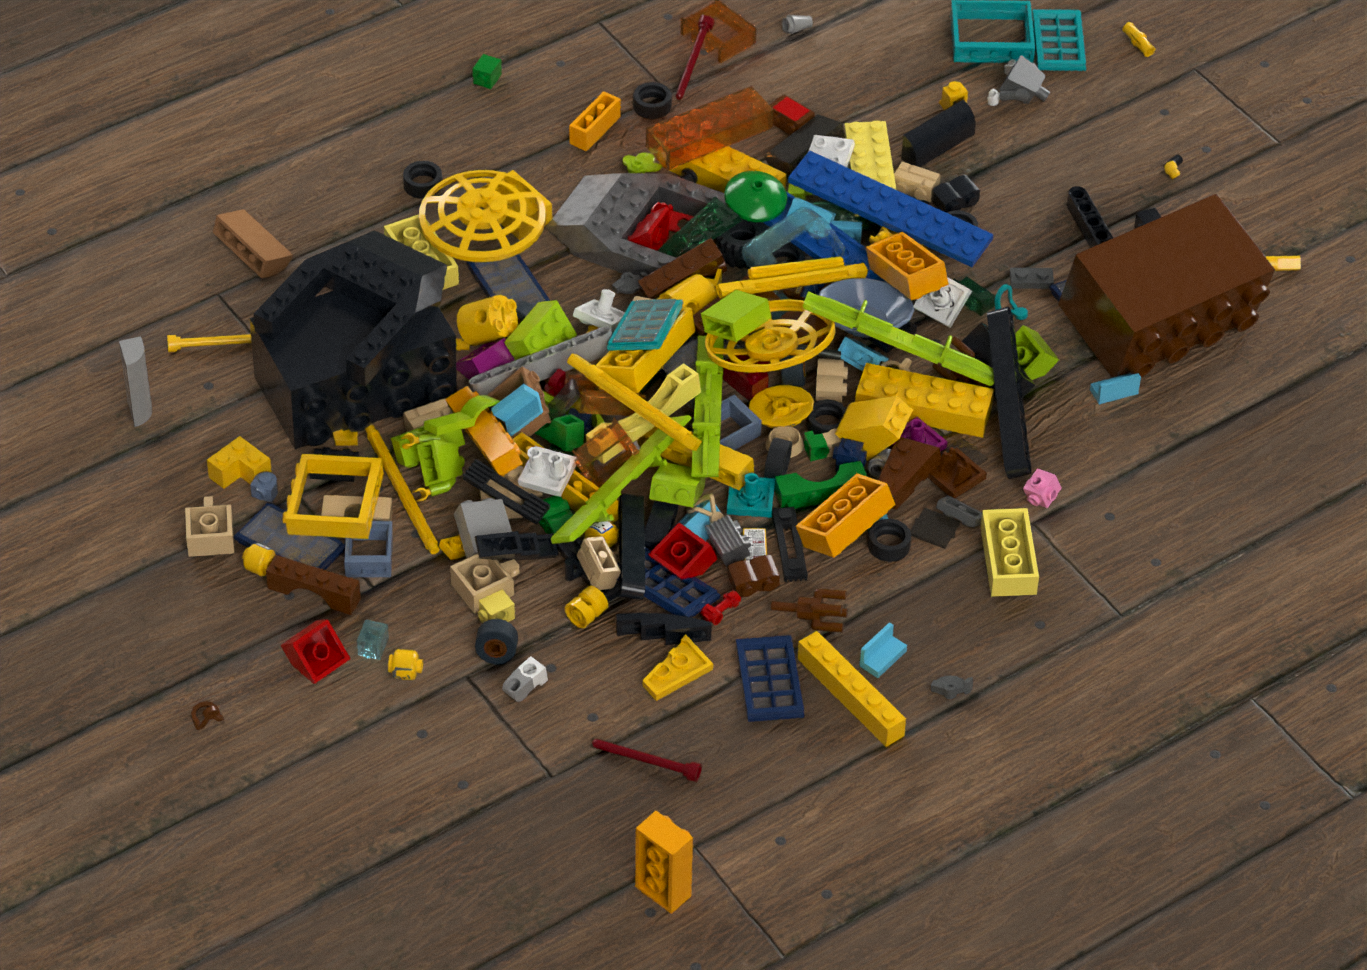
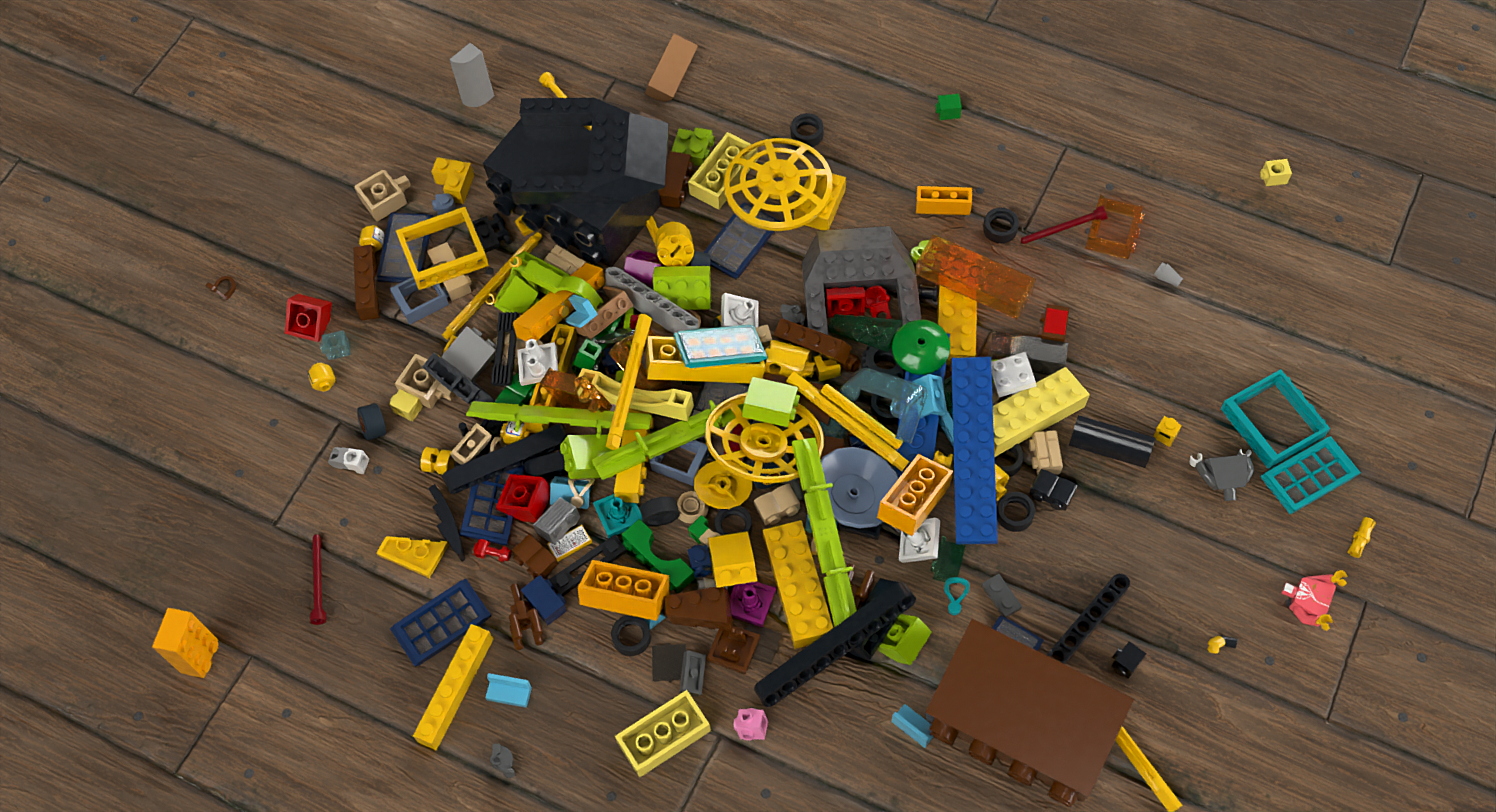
camera: 65 degrees right, 15 degrees up
(804, 583) = (544, 599): none -> dark blue brick
(1175, 93) = (1313, 597): none -> coral torso

